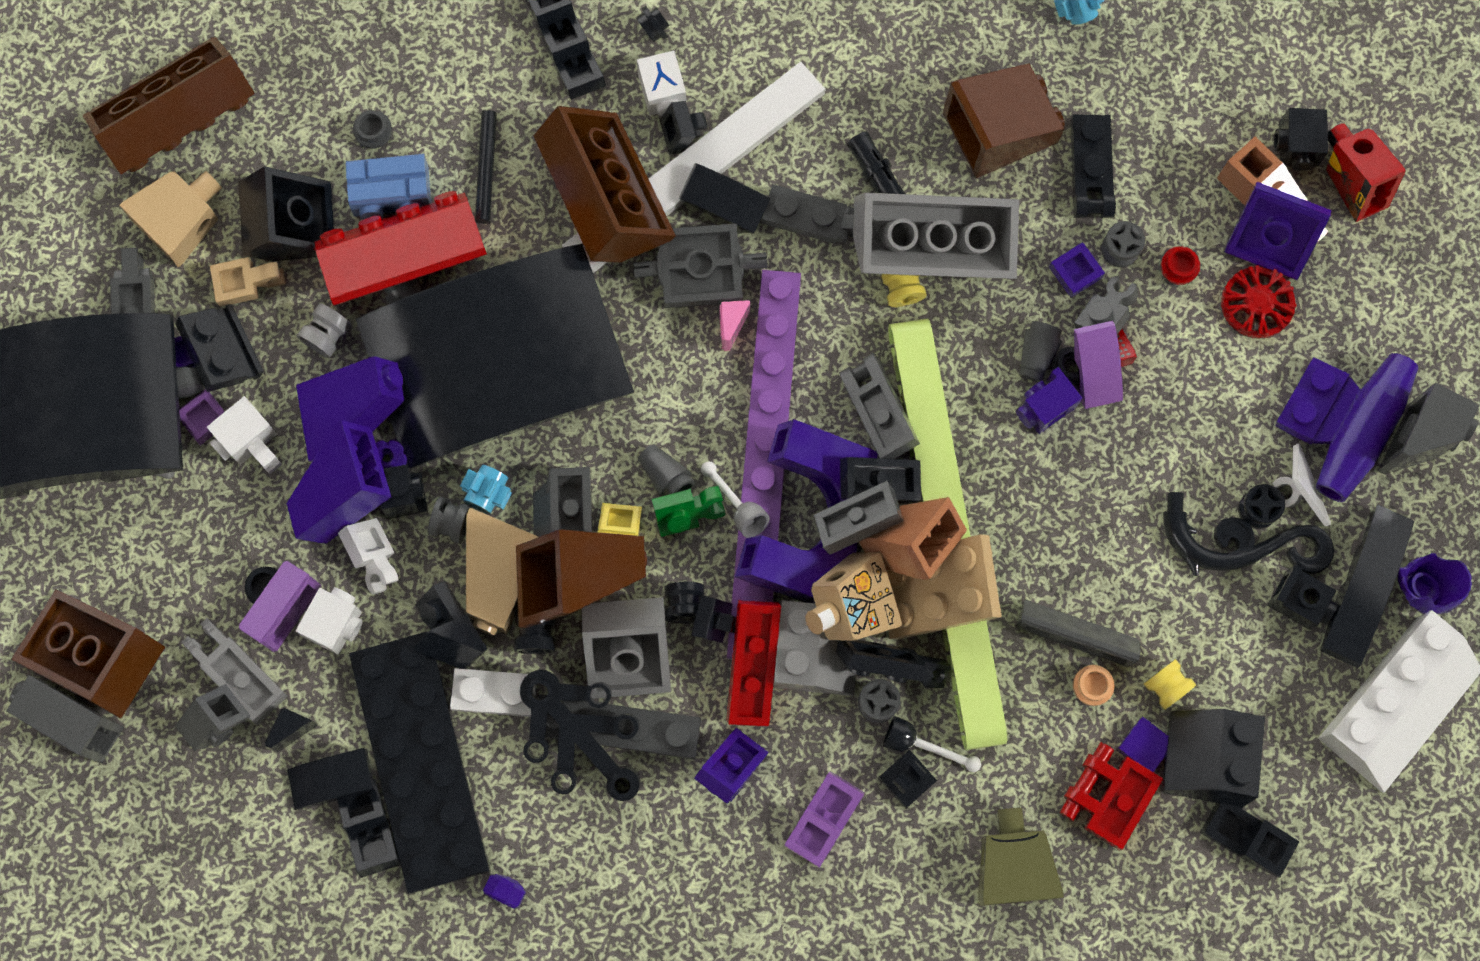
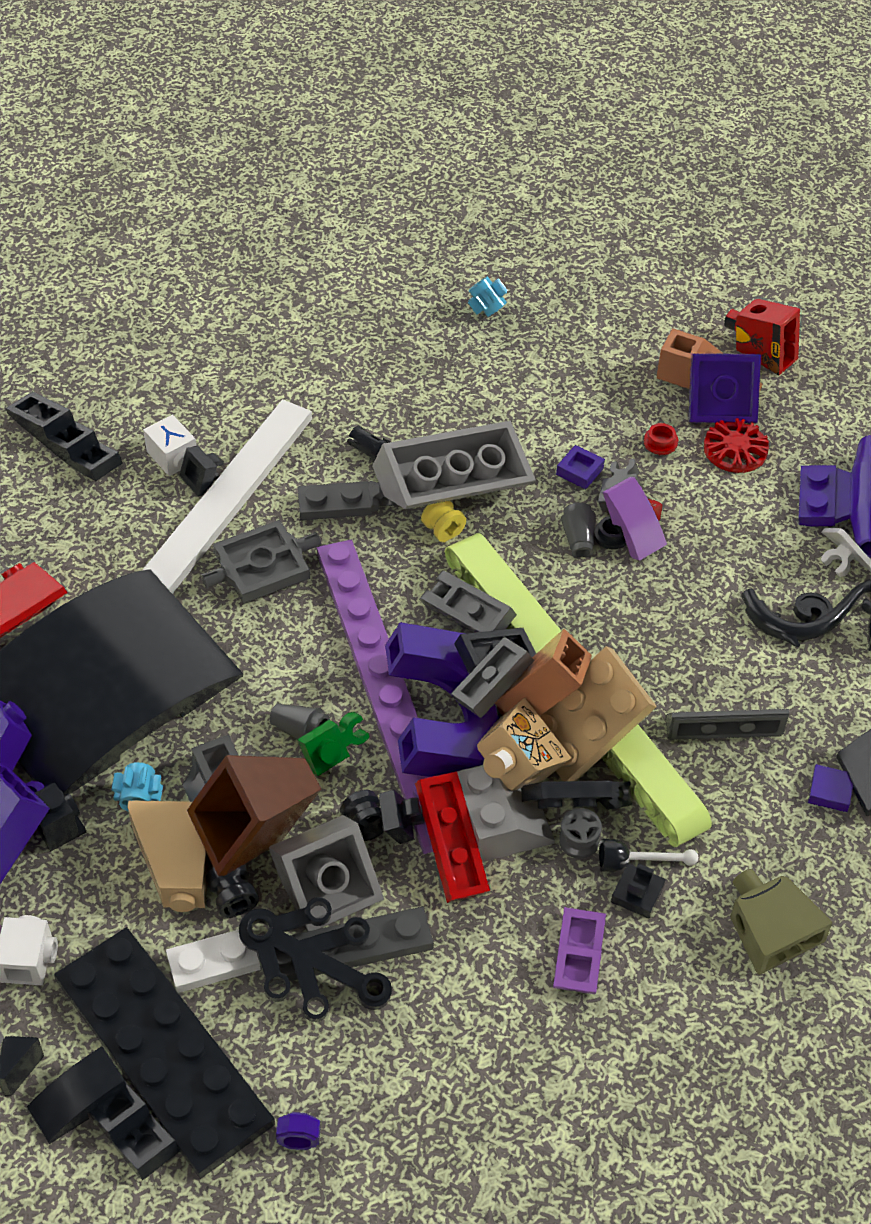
camera: 20 degrees left, 25 degrees down
(370, 548) = (40, 874): white plate -> none
(448, 520) = (112, 825): dark grey wheel -> none
(451, 633) = (147, 914): black slope -> none
(485, 167) = (34, 540): black bar -> none
(602, 184) = (148, 525): reddish brown slope -> none
(653, 23) = (145, 409): black plate -> none
(724, 198) = (257, 504): black slope -> none
(731, 766) = (470, 939): dark purple slope -> none
(732, 319) = (306, 589): bright pink slope -> none
(749, 517) = (386, 718): light grey hinge -> none
(1002, 117) = (464, 384): reddish brown slope -> none
(1048, 402) = (608, 560): dark purple brick -> none
(1092, 165) = (555, 399): black plate -> none
(1093, 685) = (760, 756): light nougat plate -> none
(1122, 802) = (838, 836): red plate -> none
(1127, 236) = (608, 438): dark grey wheel -> none
(1170, 684) = (824, 729): light yellow wheel -> none
(1267, 500) = (829, 575): black wheel -> none
(1302, 138) = (711, 324): black brick -> none

